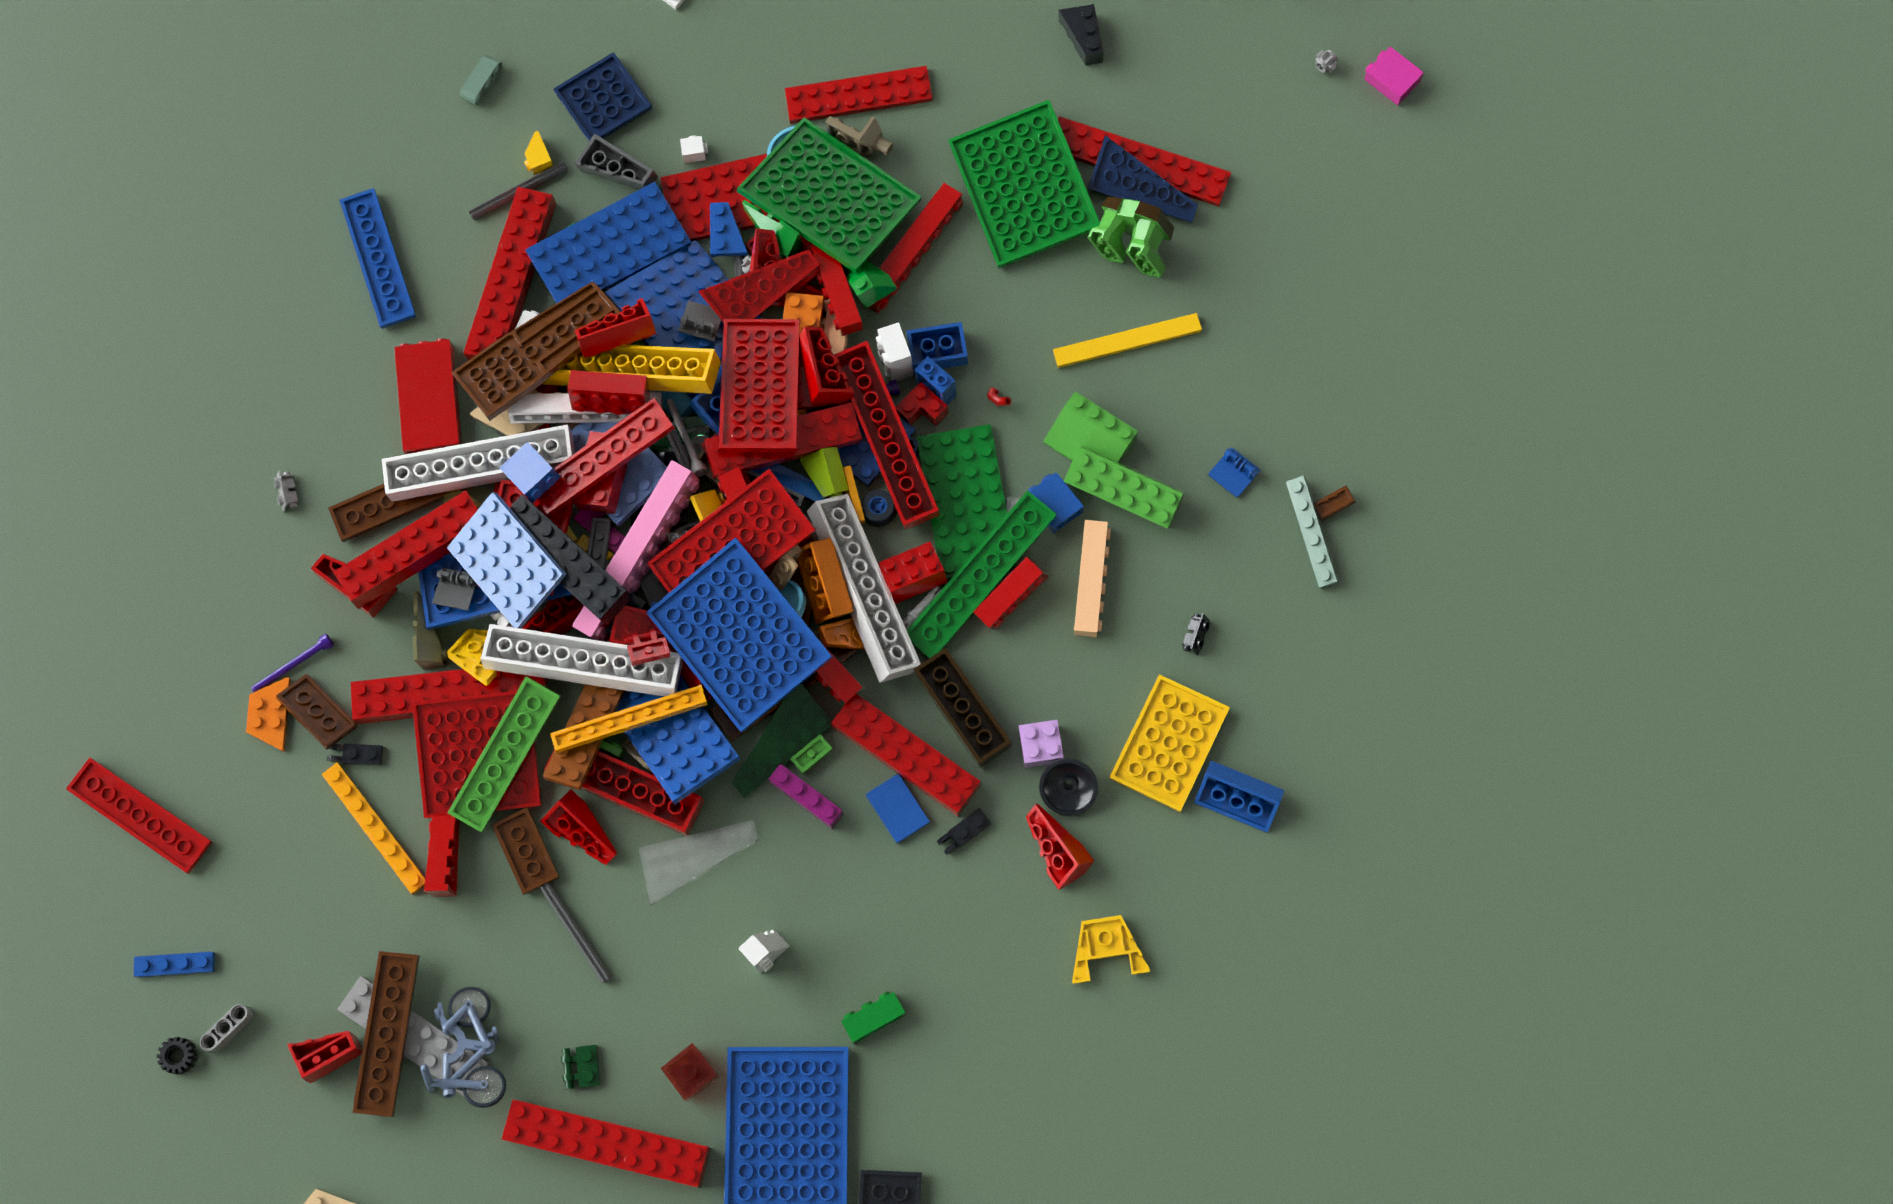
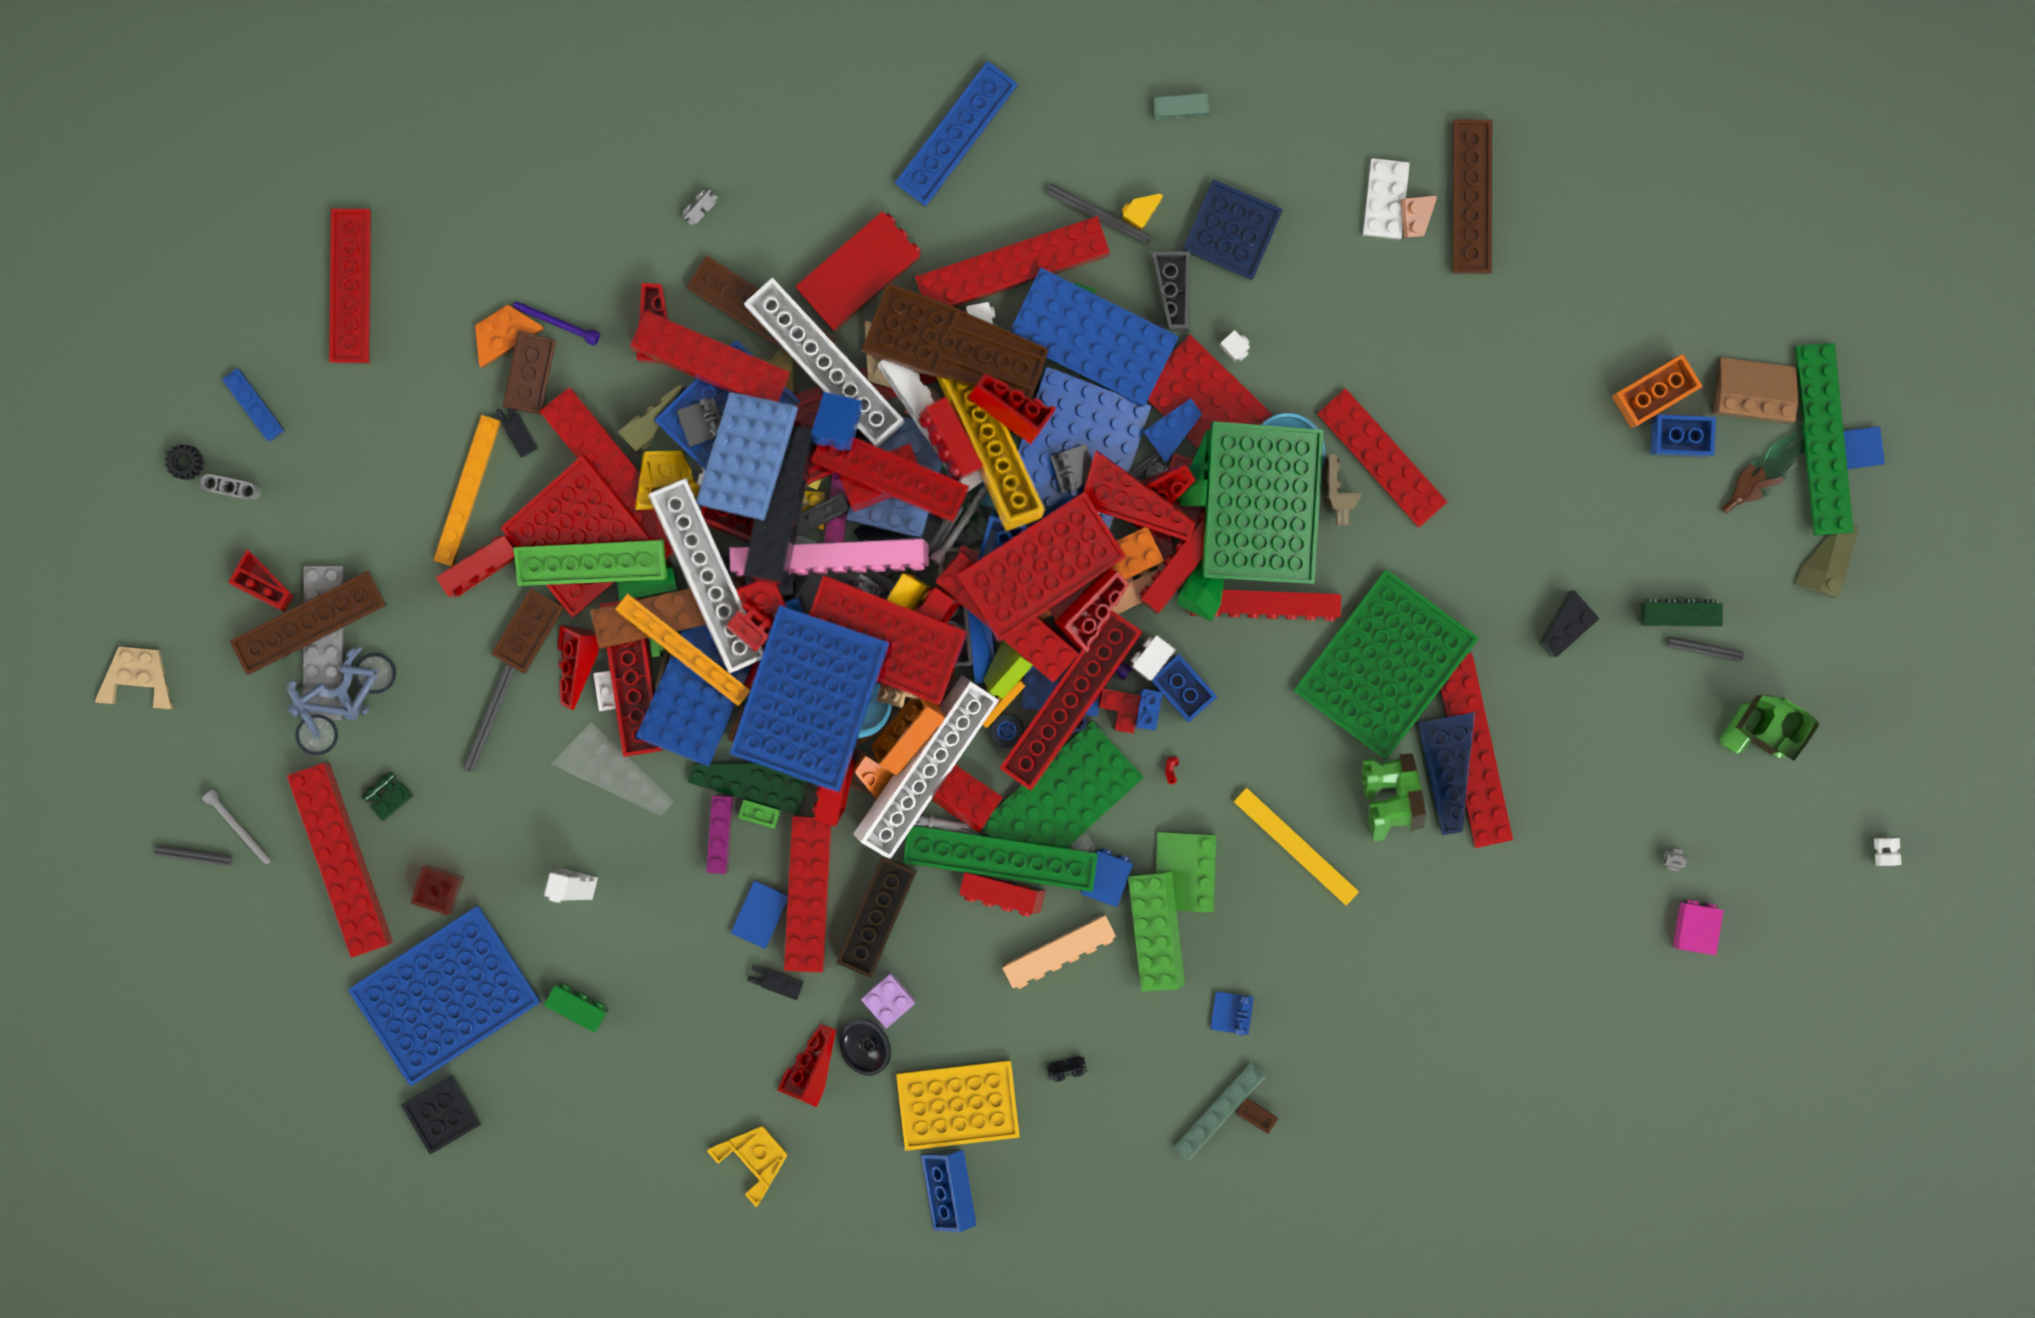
camera: 50 degrees right, 15 degrees up
(555, 722) = (649, 588): none -> green brick
(621, 817) = (604, 691): none -> white plate

